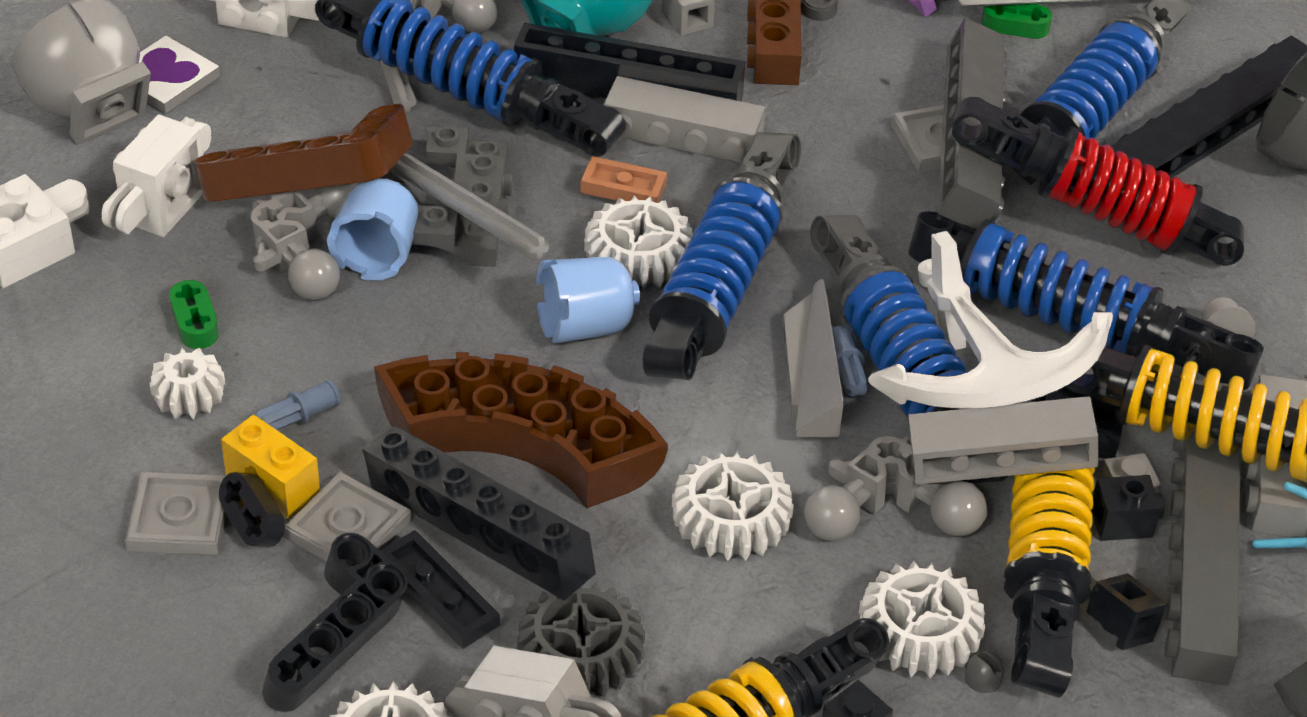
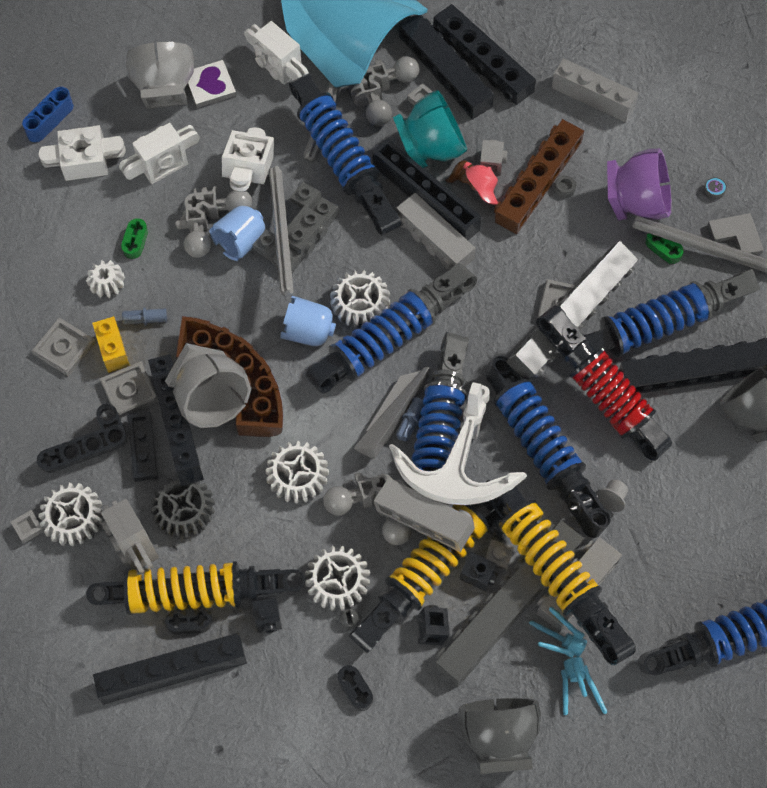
camera: 35 degrees right, 20 degrees up
(247, 513) = (89, 363): black beam -> none
(308, 163) = (229, 187): reddish brown beam -> none
(310, 115) = (247, 158): none -> white brick
(497, 412) = (207, 385): none -> light grey plate
(622, 180) = (379, 257): nougat plate -> none
(693, 29) = (478, 177): none -> coral hair

